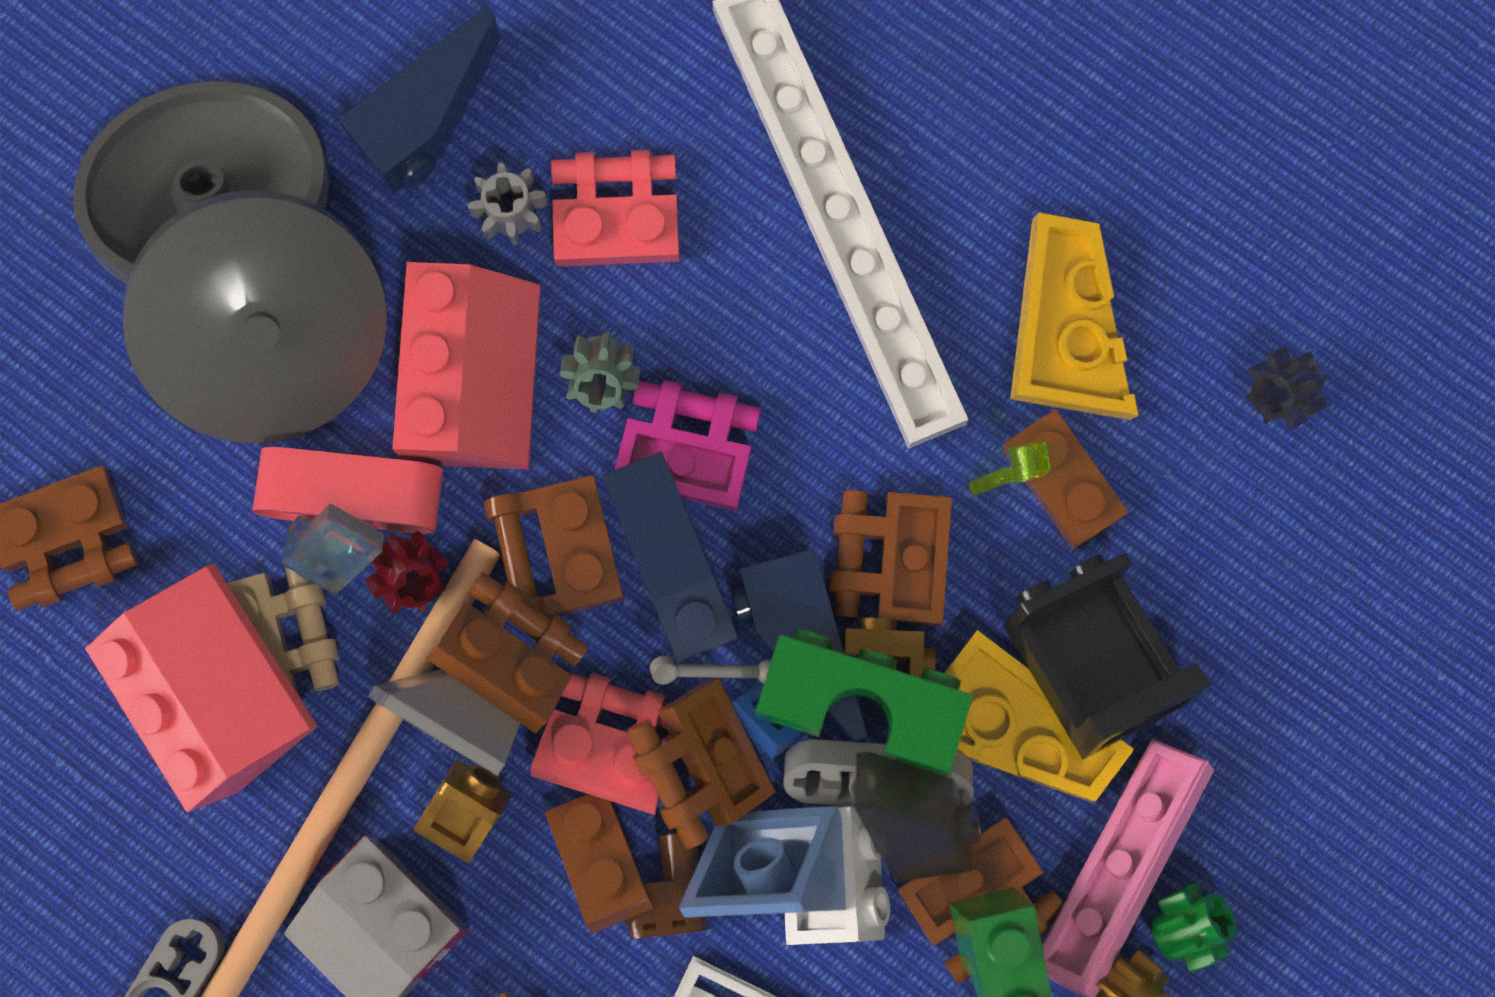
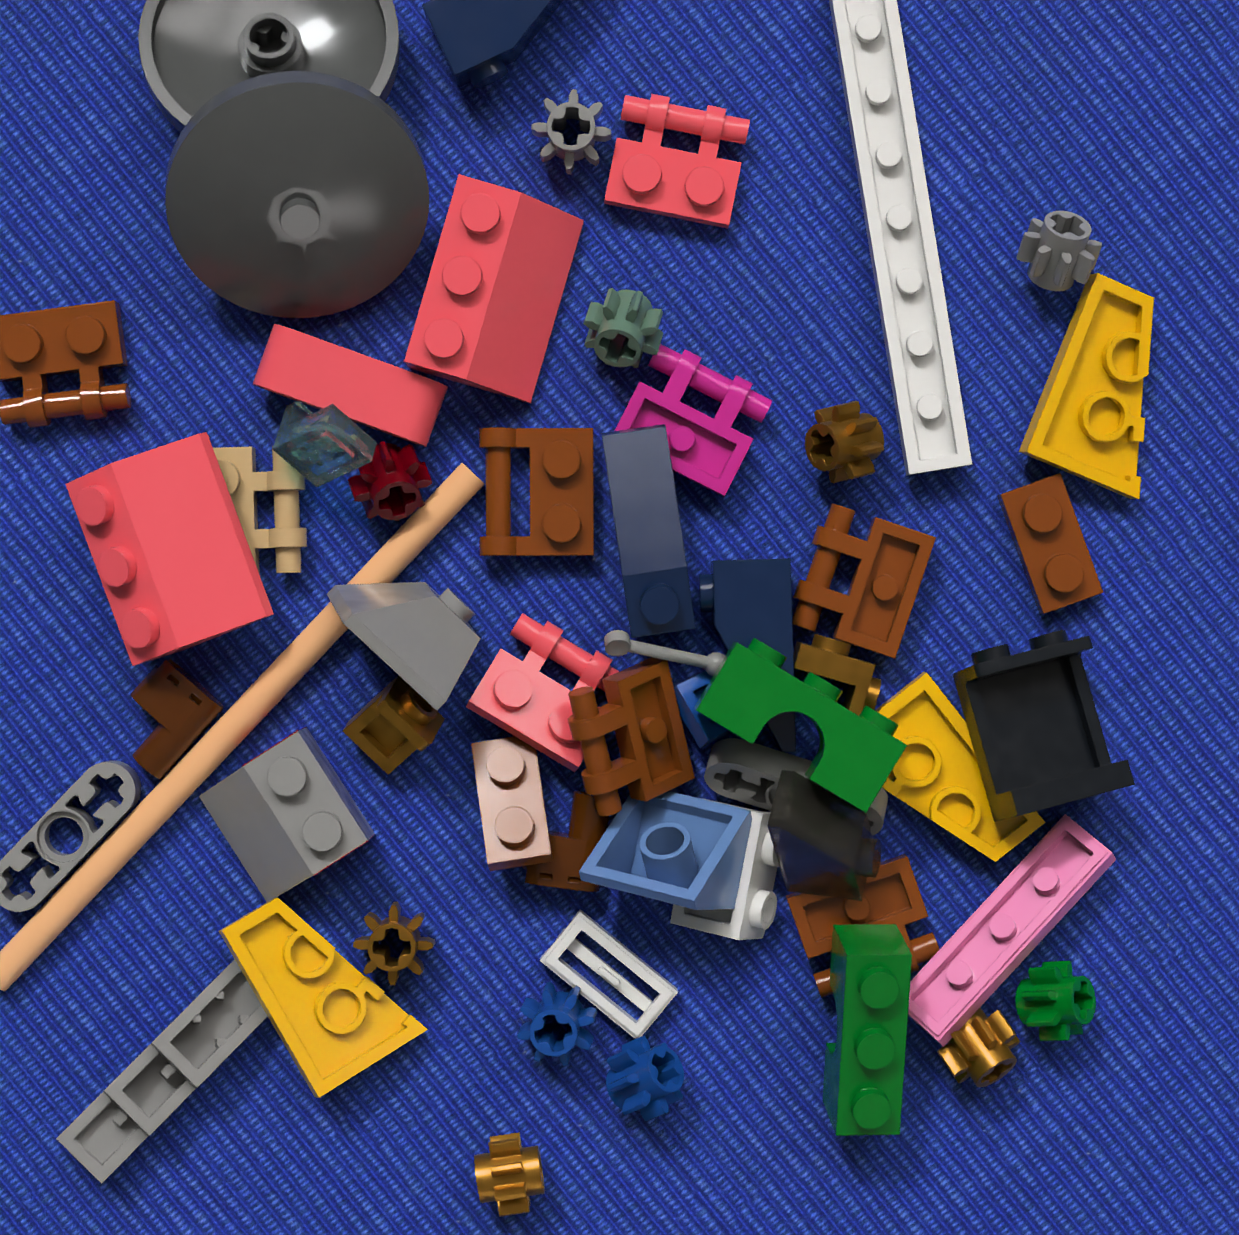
camera: 10 degrees right, 10 degrees up
(248, 850) = (181, 709): none -> reddish brown piece
(500, 665) = (458, 596): dark orange plate -> none
(839, 428) = (844, 442): none -> pearl gold gear
(997, 202) = (1059, 250): none -> light grey gear
(1027, 462) = (1018, 522): clear neon green hand -> none

